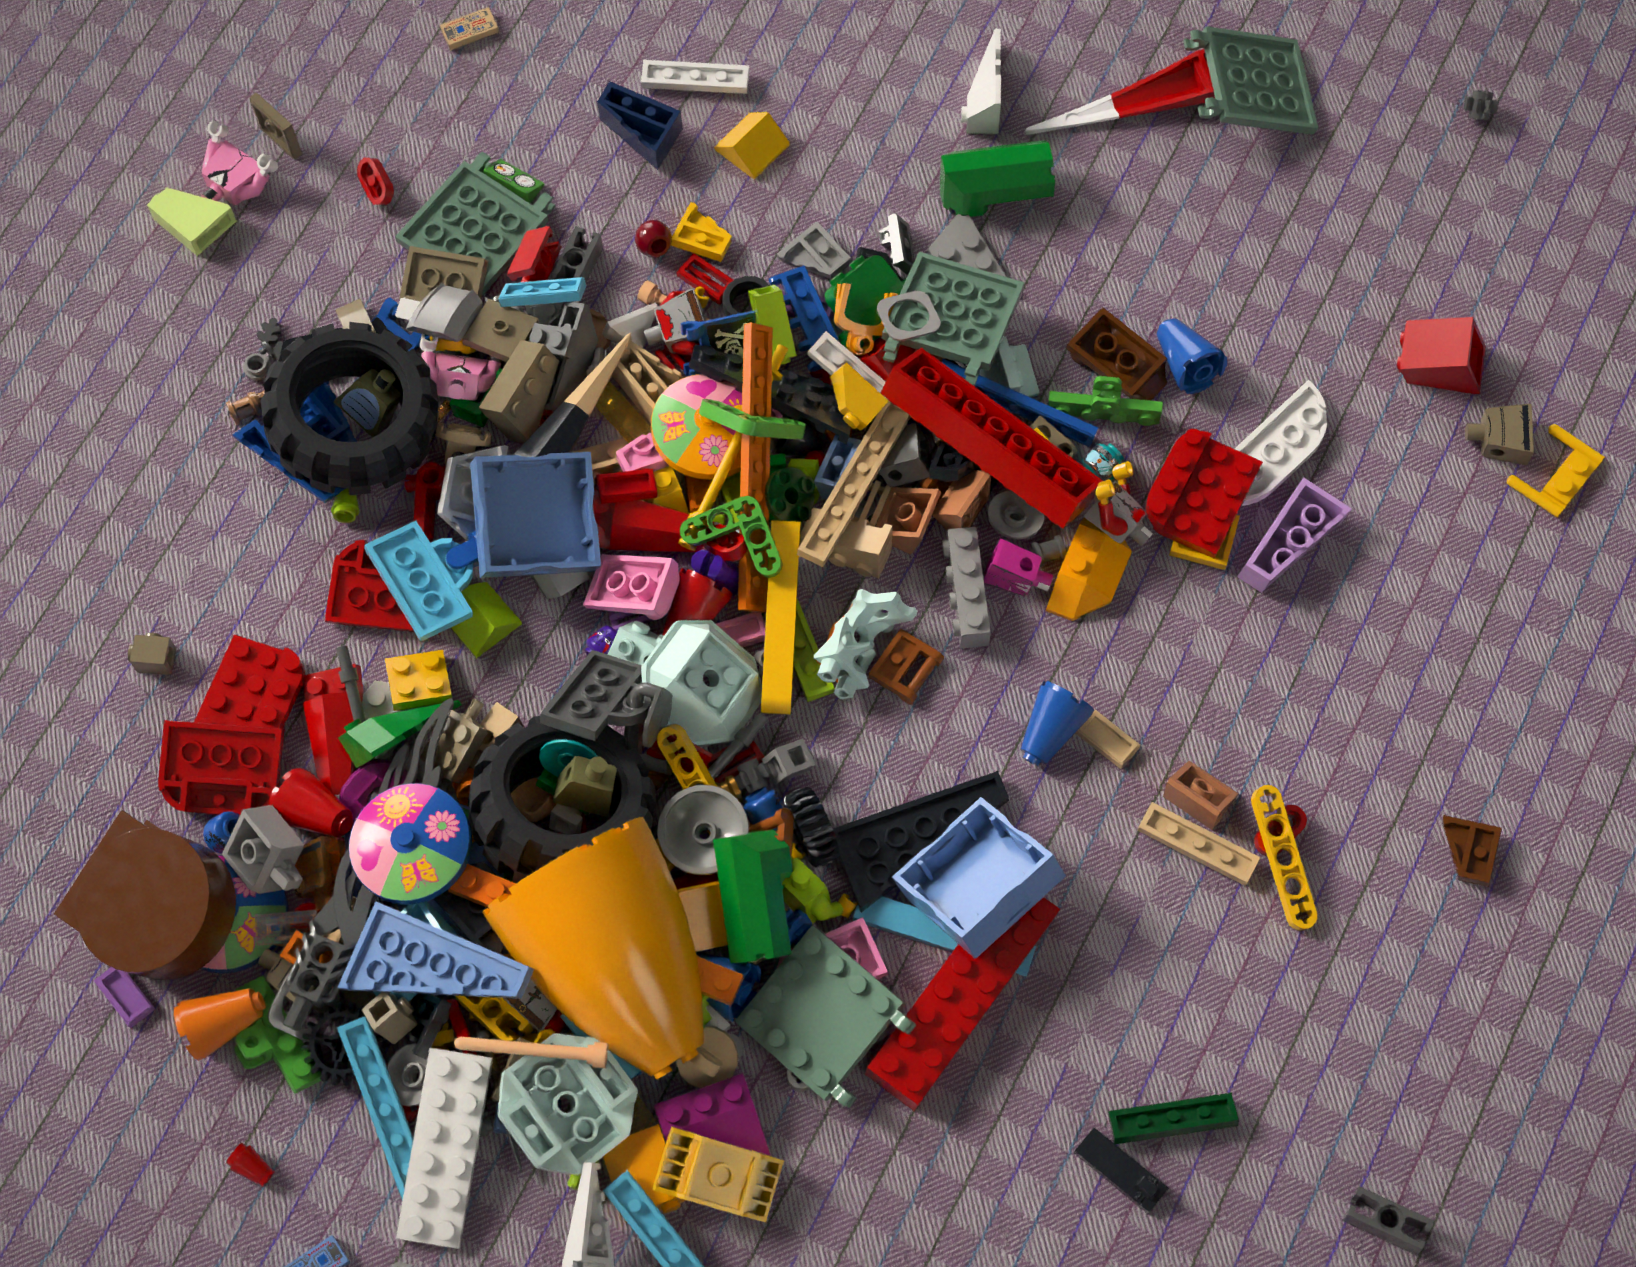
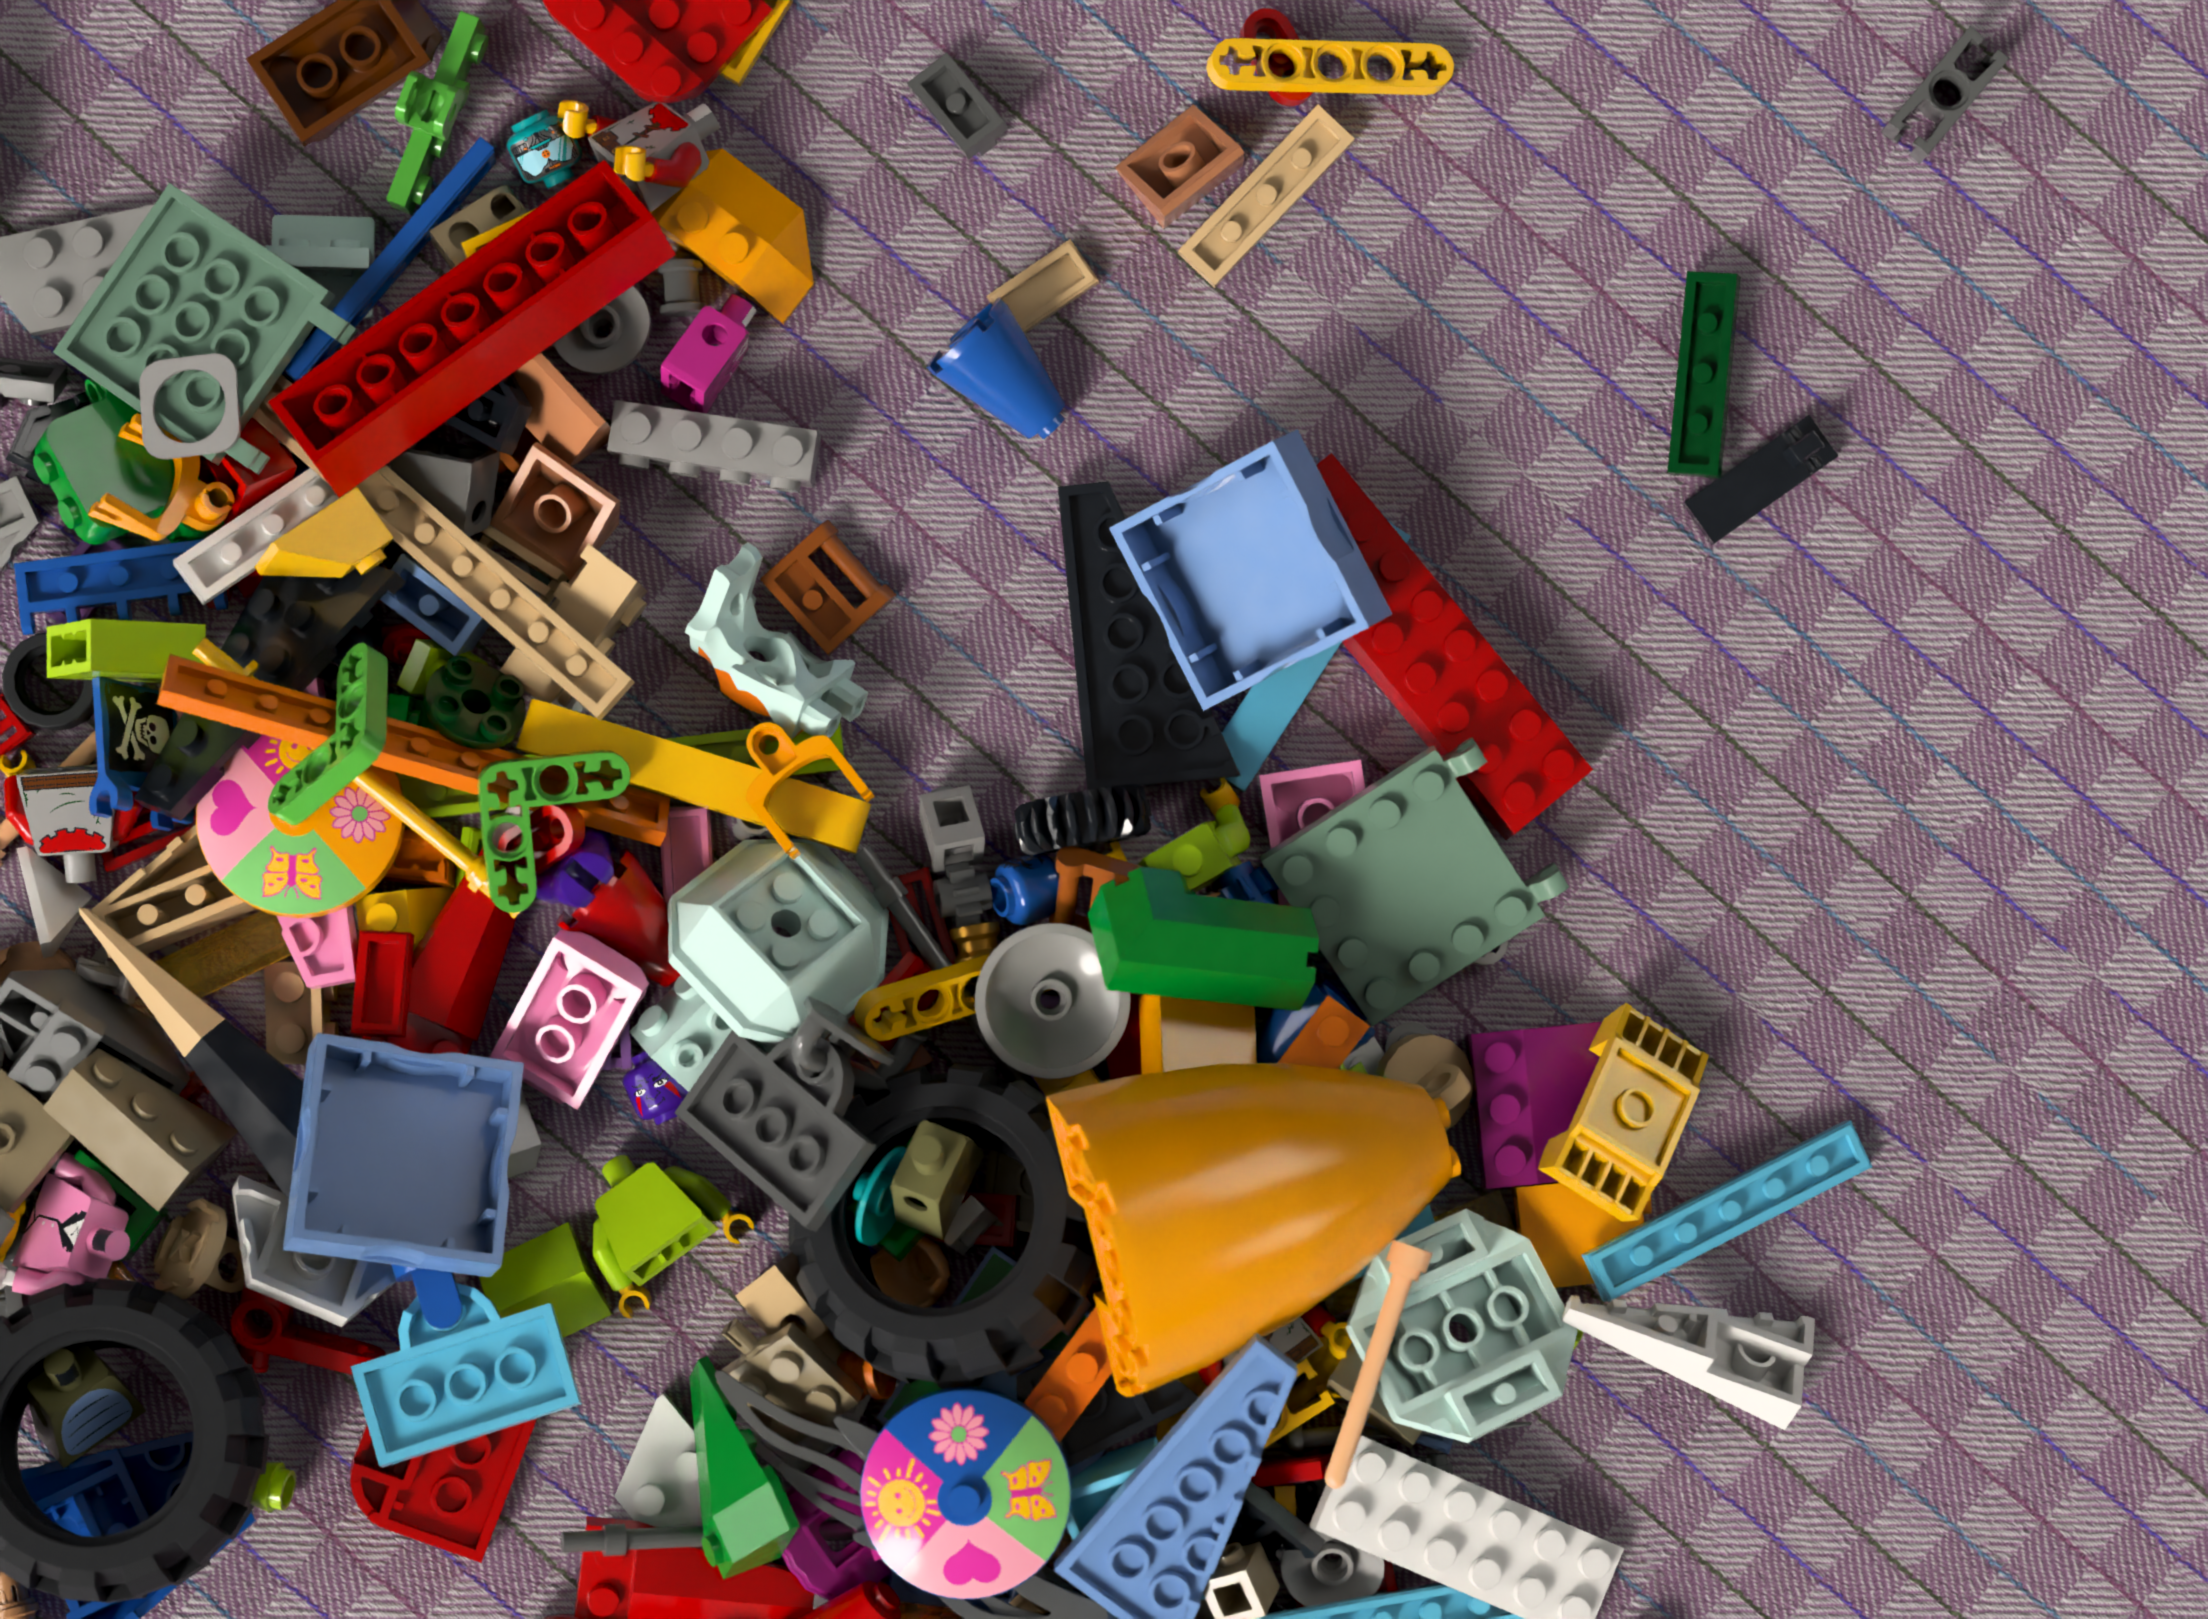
camera: 75 degrees left, 20 degrees up
(418, 680) = (636, 1421): yellow plate -> none
(530, 660) = (653, 1221): none -> lime torso
(799, 652) = (782, 764): none -> light orange piece
(1194, 666) = (958, 106): none -> dark grey hinge

